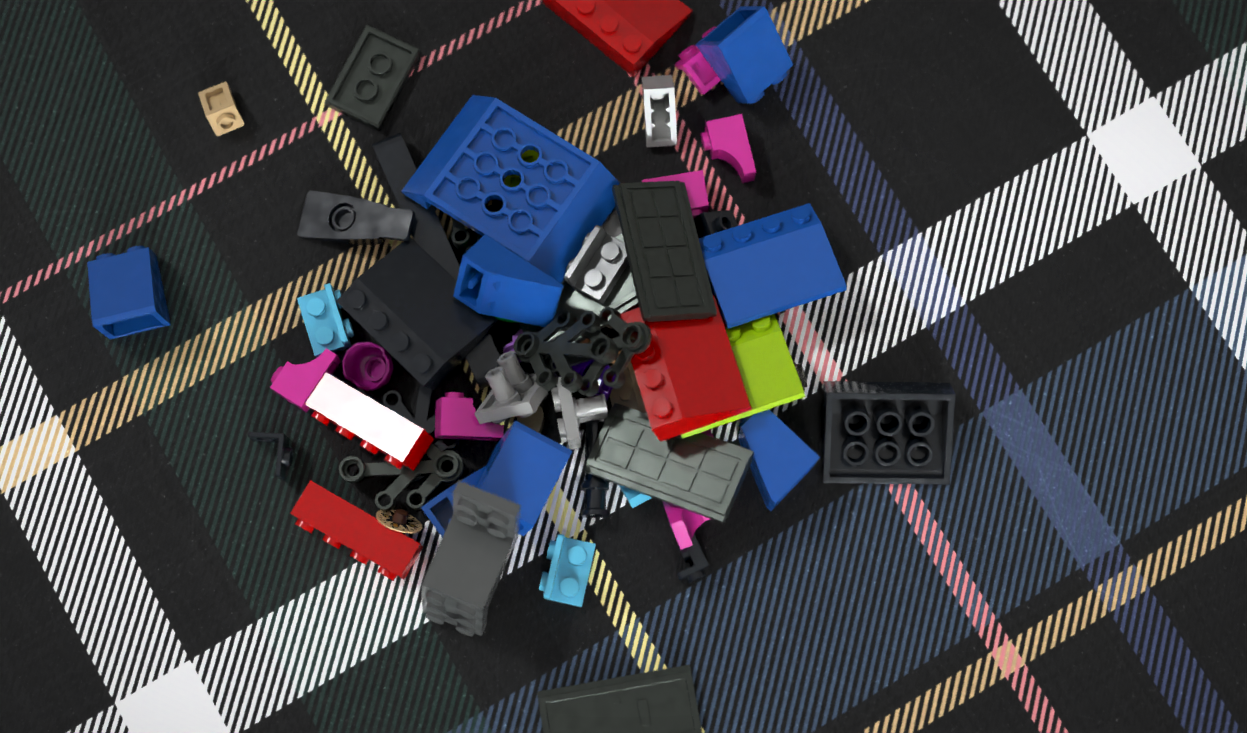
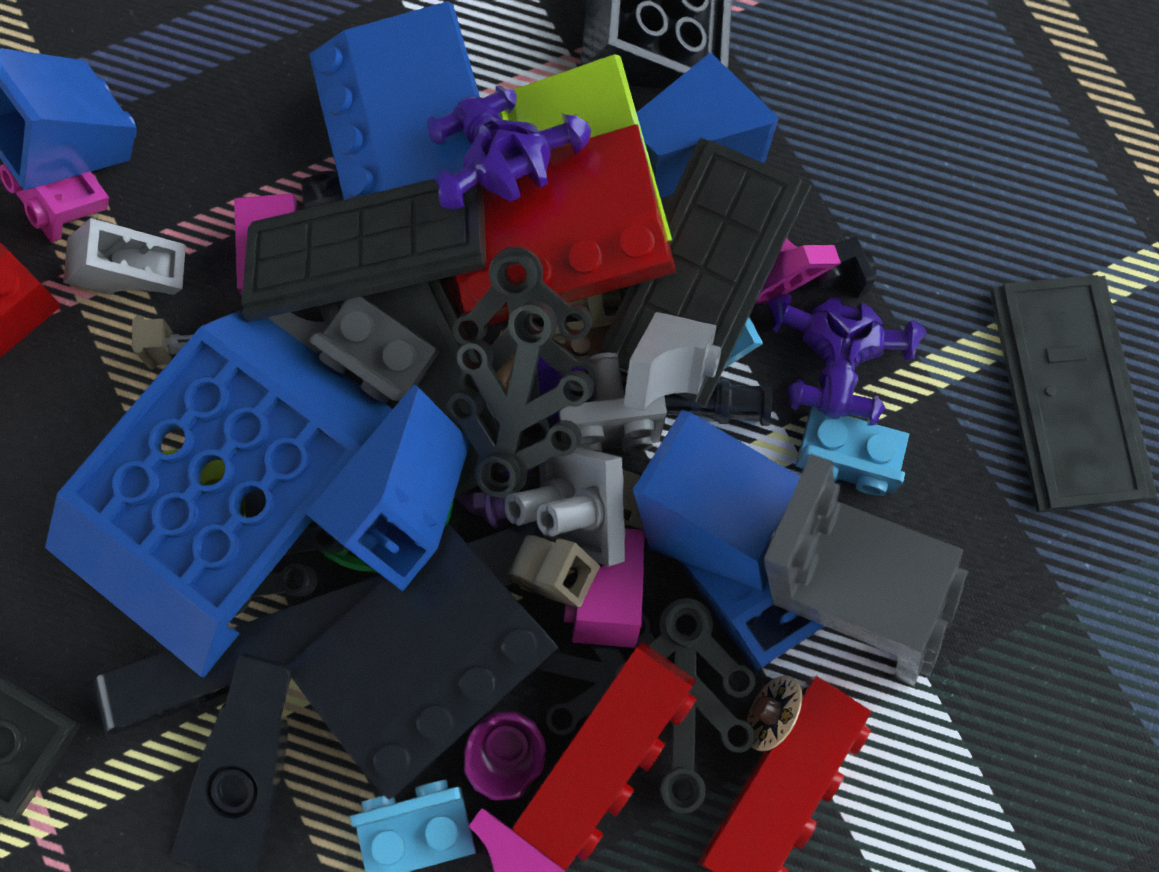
camera: 90 degrees left, 5 degrees down
(470, 376) = (544, 565): none -> dark tan leg
(601, 439) = (671, 359): none -> light grey arch
(608, 136) = (155, 341): none -> dark tan piece
(642, 561) = (843, 340): none -> dark purple piece
(723, 325) = (499, 147): none -> dark purple piece
(728, 141) = (196, 163): dark pink arch -> none

